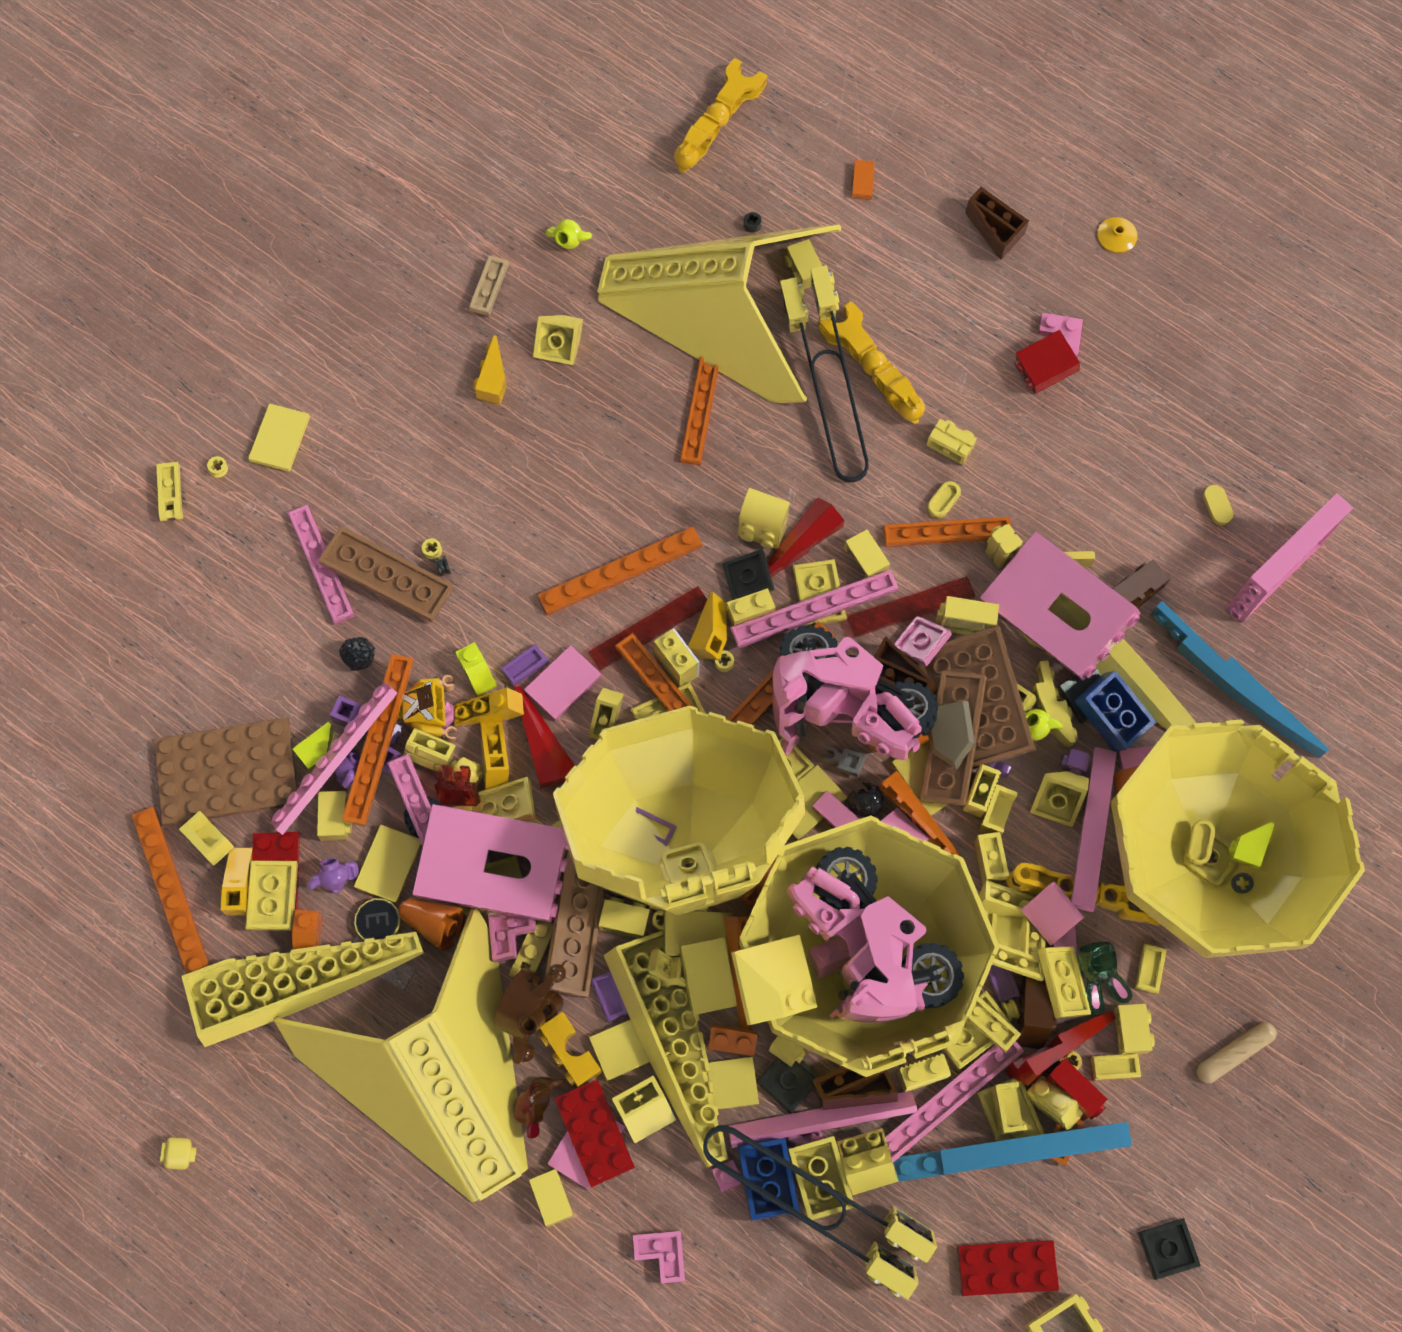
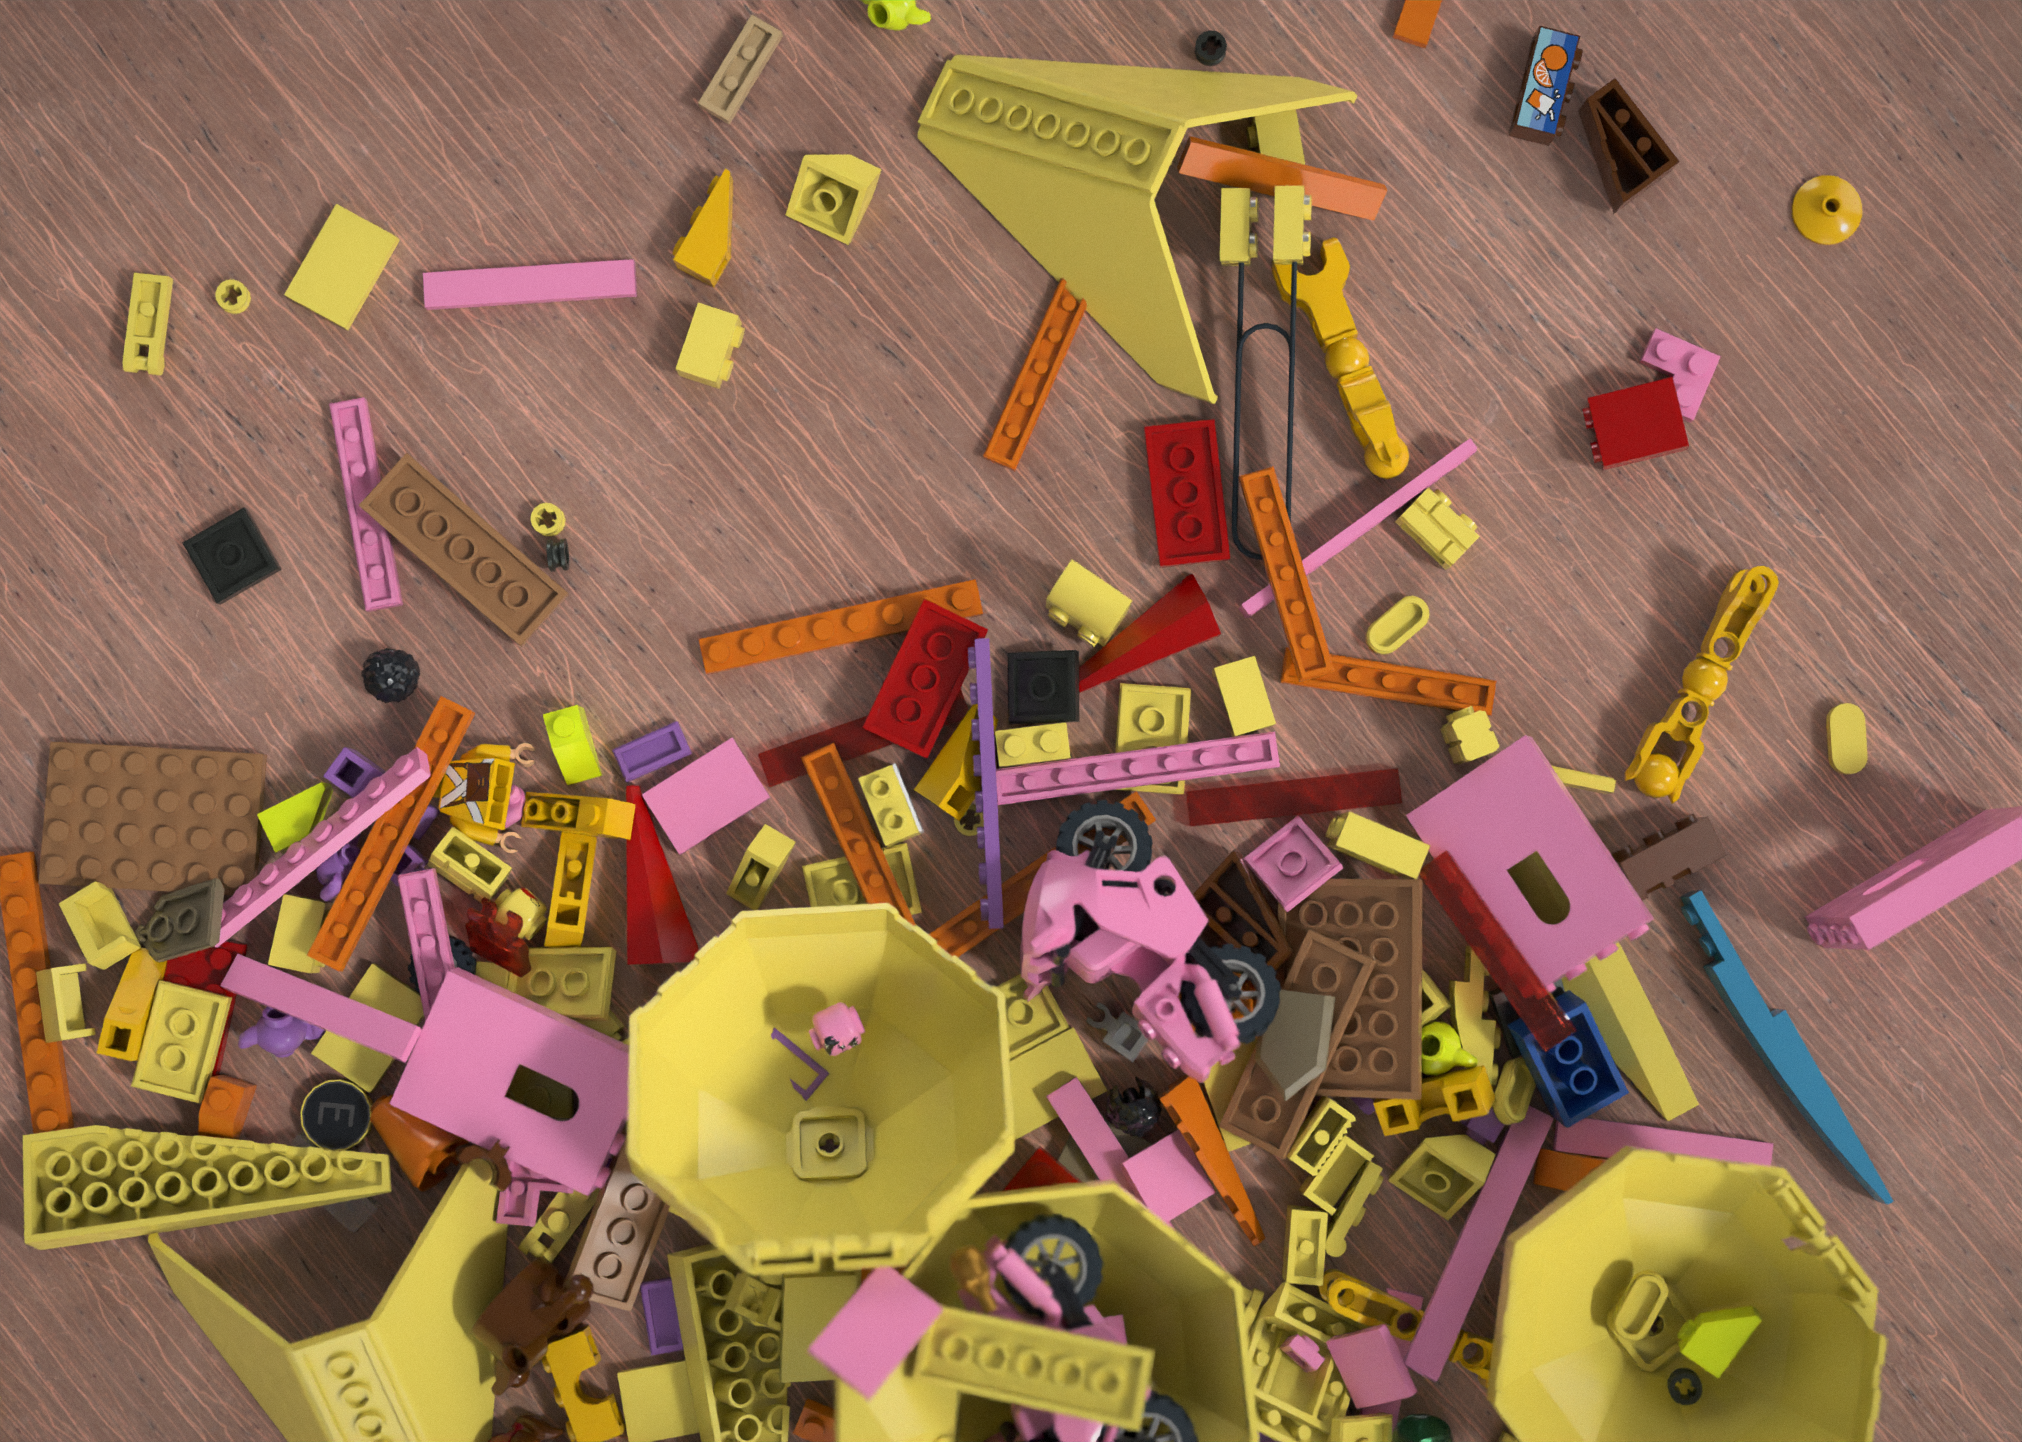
camera: 15 degrees right, 15 degrees up
(190, 890) = (62, 1003): none -> light yellow panel
(245, 610) = (232, 556): none -> pearl dark grey tile
(259, 823) = (184, 921): none -> dark tan tile
(357, 849) = (321, 1008): none -> bright pink tile
(392, 424) = (529, 284): none -> bright pink tile
(482, 913) = (495, 1158): none -> reddish brown piece
(506, 432) = (710, 346): none -> light yellow brick
(676, 789) = (836, 1029): none -> bright pink head
(678, 584) = (924, 679): none -> red plate
(732, 640) = (987, 798): none -> medium lavender plate
(750, 928) = (875, 1331): none -> bright pink tile
(780, 270) = (1263, 172): none -> orange tile
(801, 886) = (973, 1275): none -> pearl gold piece
(803, 454) = (1186, 493): none -> red plate
(851, 927) = (1035, 1366): none -> light yellow plate
(873, 480) = (1286, 574): none -> orange tile
(905, 452) = (1369, 520): none -> bright pink tile
(943, 202) = (1546, 86): none -> brick
(1008, 919) = (1303, 1352): none -> bright pink plate
(1012, 832) = (1351, 1207): none -> light yellow plate
(1046, 750) = (1457, 1093): none -> yellow arch
(1056, 653) = (1497, 951): none -> clear red tile
(1088, 739) = (1513, 1092): none -> light yellow tile
(1127, 490) = (1702, 683): none -> yellow piece

